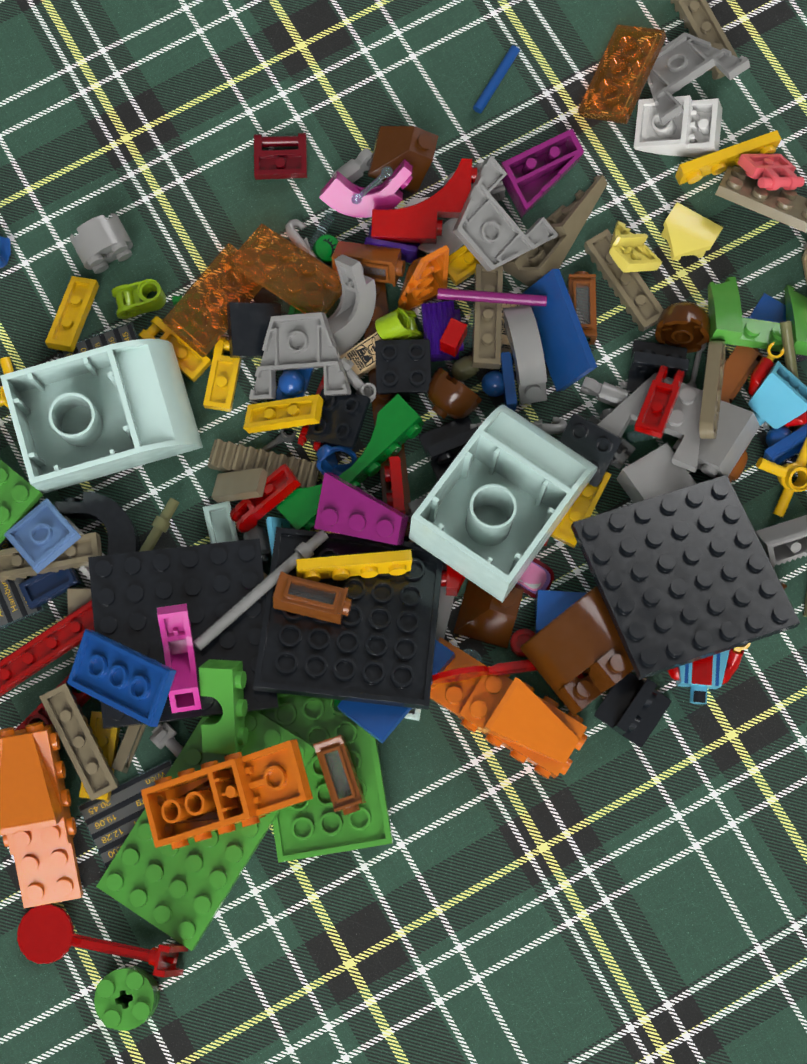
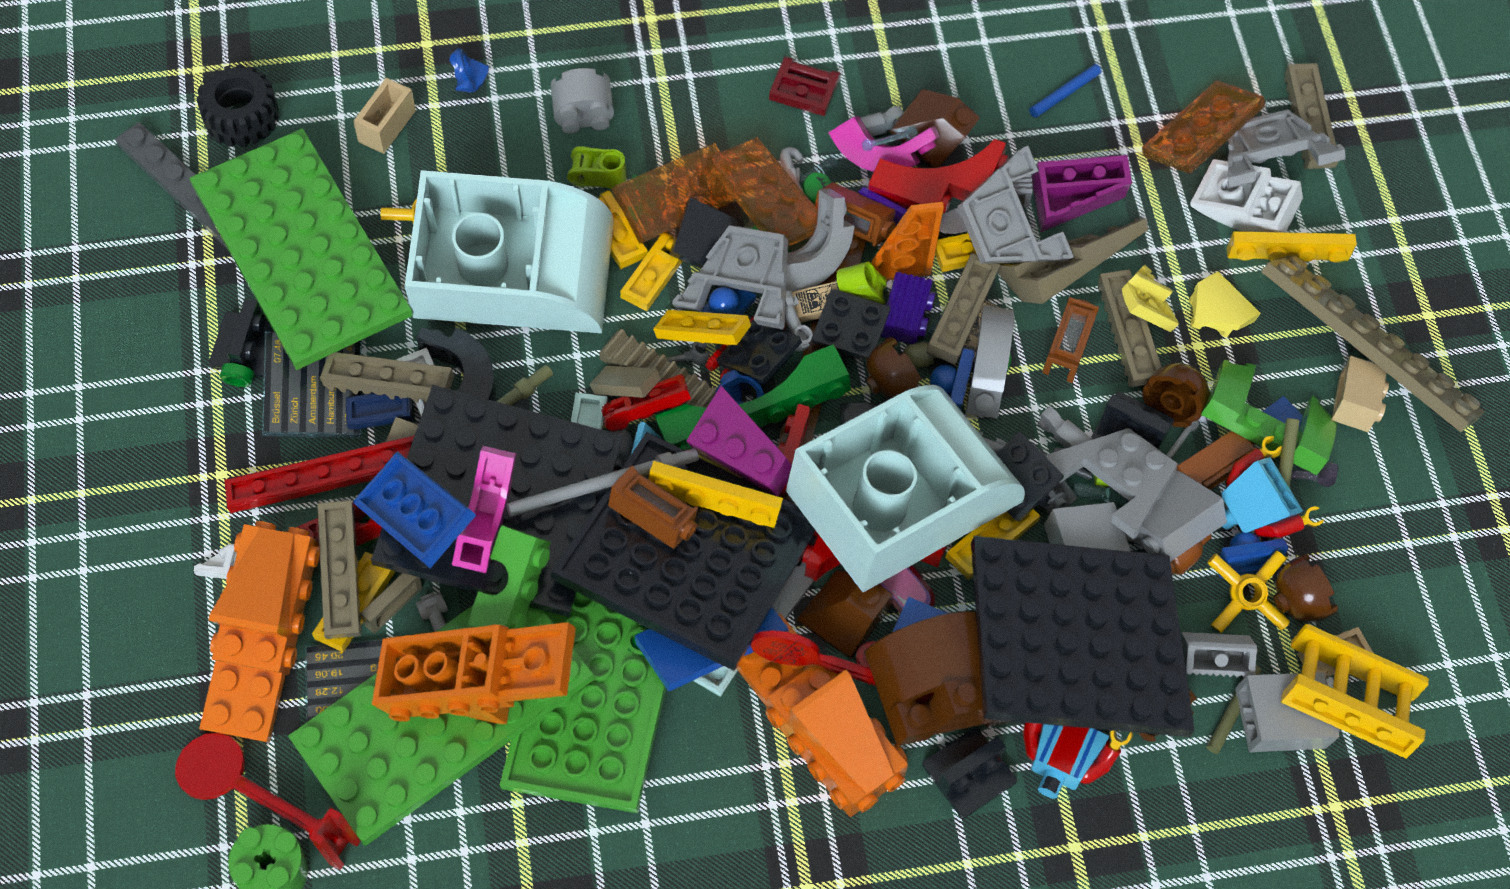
camera: 15 degrees right, 15 degrees down
(42, 535) = (393, 352): medium blue tile -> none
(72, 314) = (524, 153): yellow plate -> none
(339, 774) = (607, 709): dark orange window -> none
(453, 337) = (917, 311): red piece -> none
(492, 297) = (975, 288): magenta bar -> none
(561, 332) = (1036, 349): blue tile -> none
(659, 403) = (1119, 452): red hinge -> none
(712, 390) = (1185, 461): dark tan beam -> none
(771, 171) = (1333, 272): coral plate -> none

